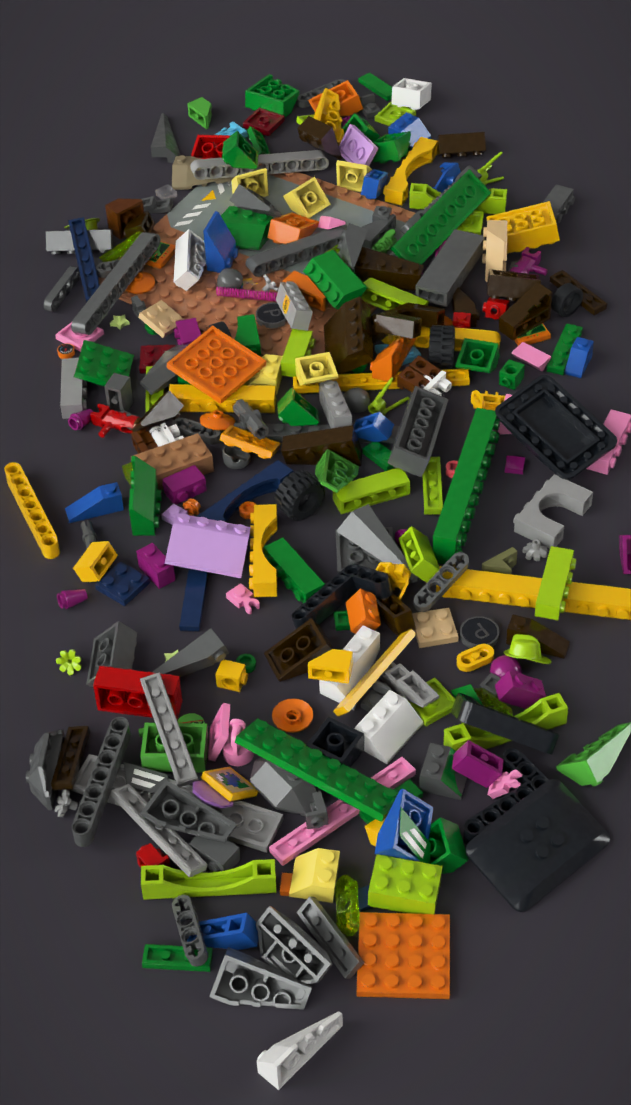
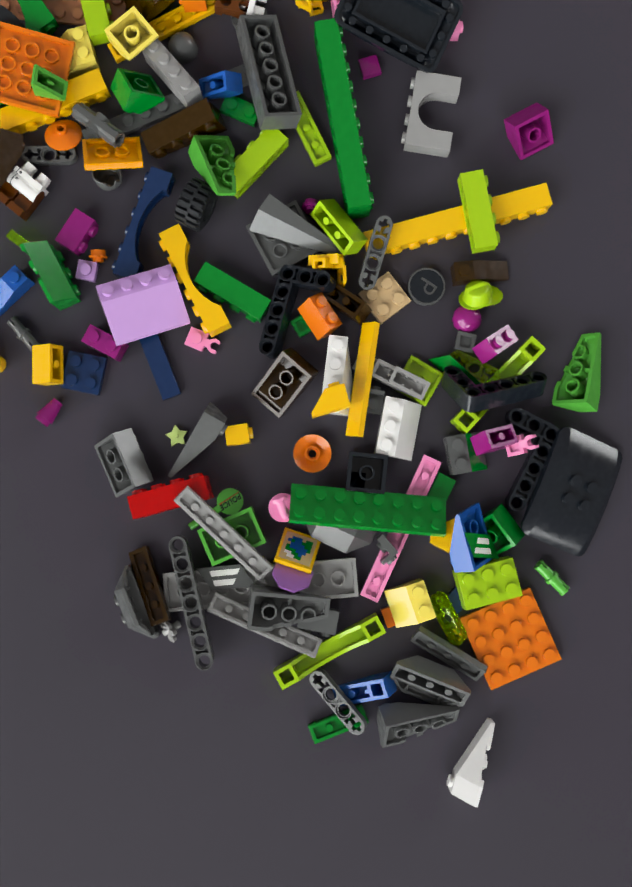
camera: 30 degrees left, 40 degrees up
(69, 661) = (89, 483): lime plant -> none
(148, 855) = (272, 651): red brick -> none
(178, 456) = (51, 208): medium nougat brick -> none
(219, 732) = (262, 505): bright pink tile -> none
(225, 373) = (48, 84): none -> bright green slope
(246, 508) = (150, 233): orange tile -> none
(249, 661) = (241, 412): green tile -> none
(379, 404) = (207, 47): lime plant -> none
(451, 465) = (320, 93): coral bush -> none
(472, 658) = (435, 318): yellow plate -> none
(478, 914) = (551, 577): none -> bright green pin
(502, 562) = (412, 206): olive slope -> none
(535, 550) = (433, 167): light grey plant -> none

